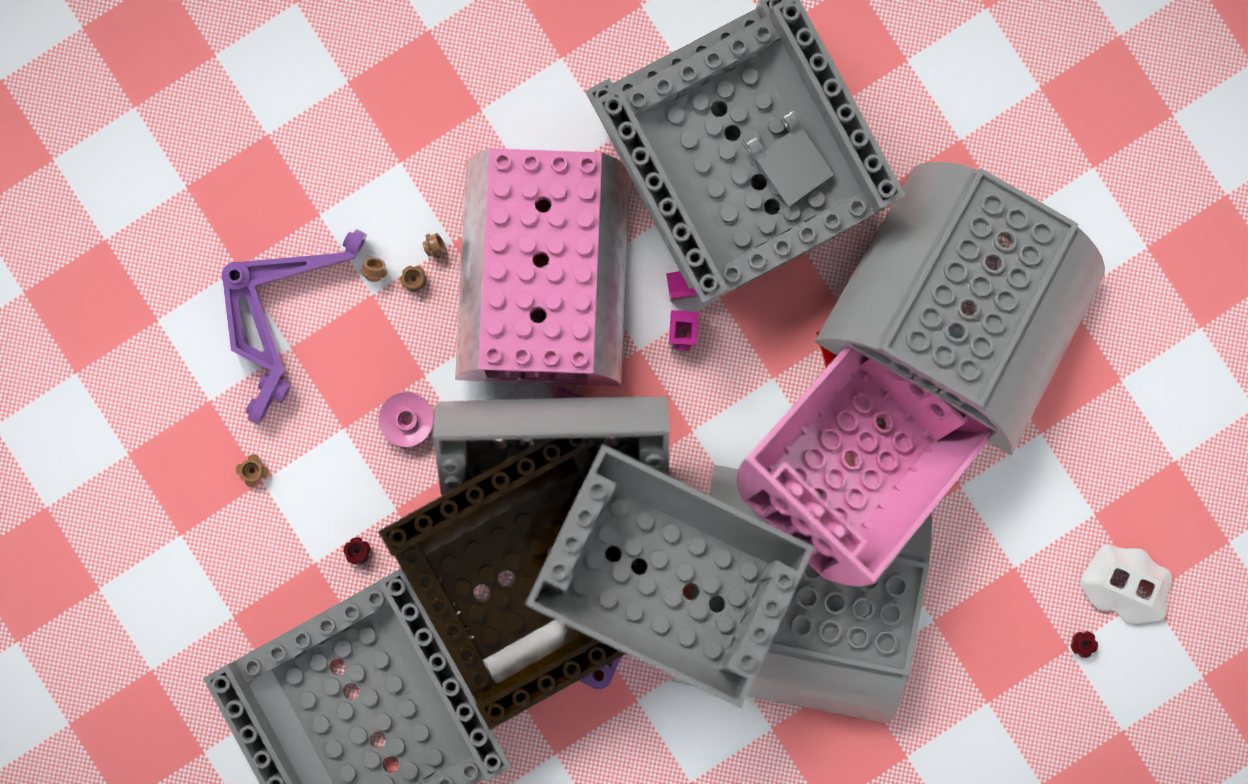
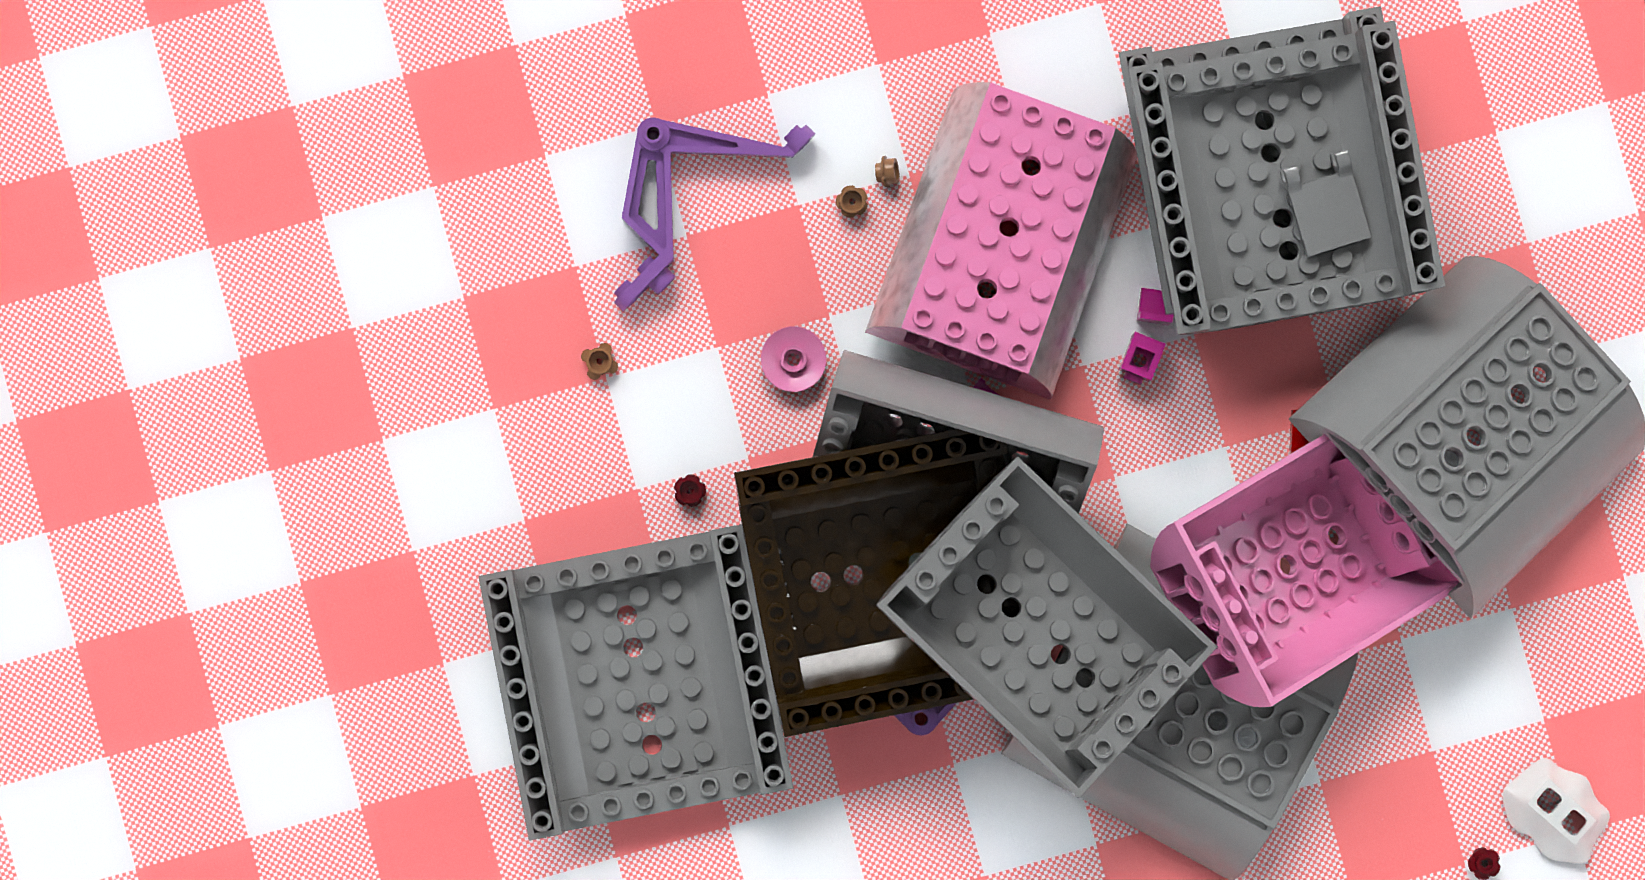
camera: 20 degrees right, 0 degrees up
(373, 269) = (810, 177): medium nougat plate -> none

